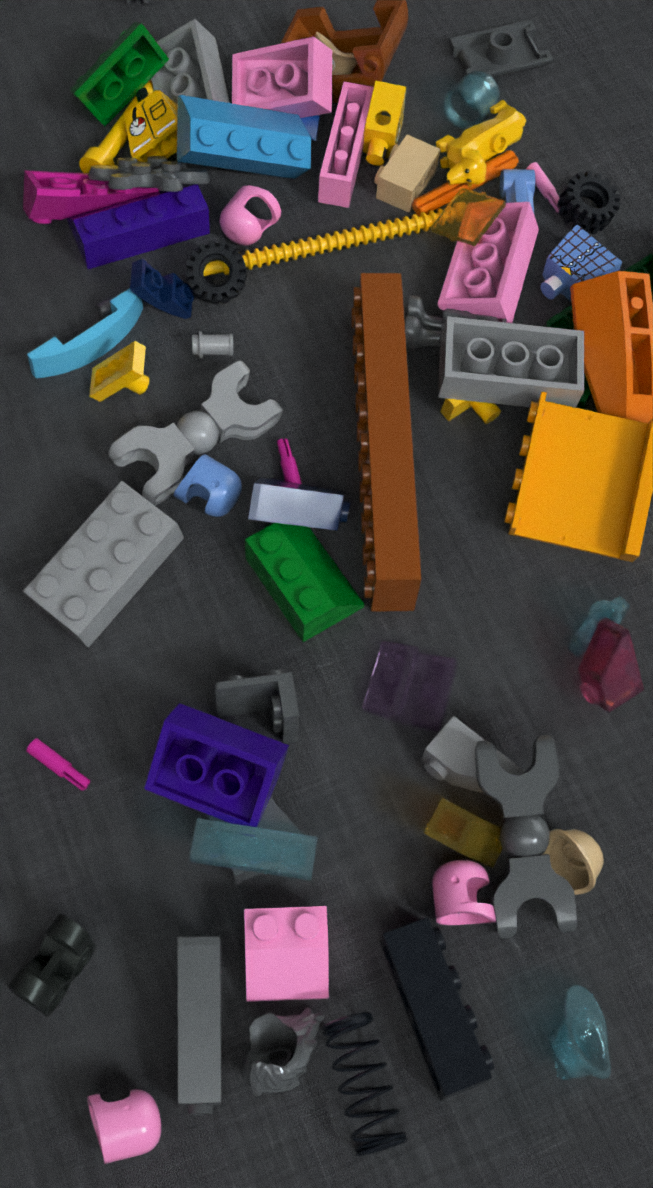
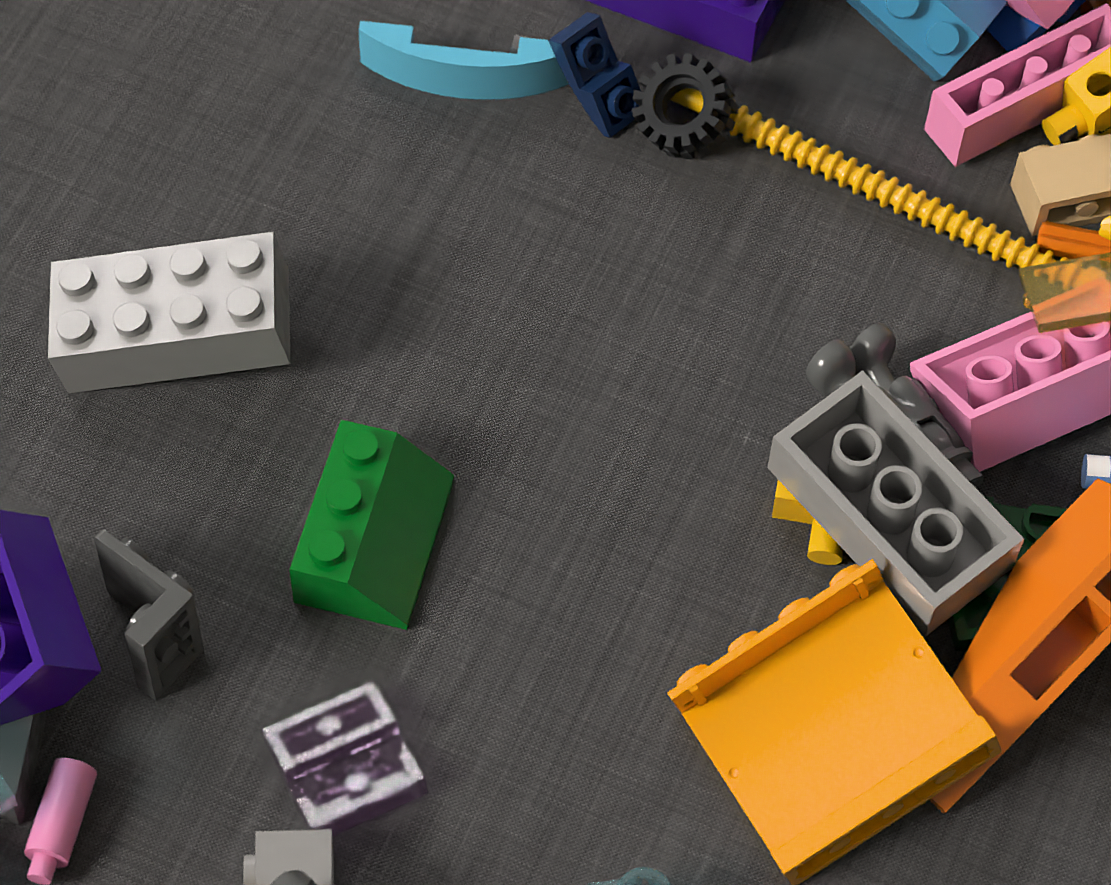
camera: 50 degrees right, 5 degrees down
(120, 371) = (440, 126): yellow tile -> none
(196, 433) = (446, 265): light grey piece -> none
(212, 344) = (589, 185): light grey pin -> none
(212, 483) = (393, 334): medium blue helmet -> none
(239, 223) = (795, 74): bright pink helmet -> none
(288, 462) = (507, 402): dark pink pin -> none
(298, 504) = (448, 435): slope -> none
(330, 835) = (59, 818): none -> bright pink cylinder
(385, 445) = (633, 463): dark orange brick -> none

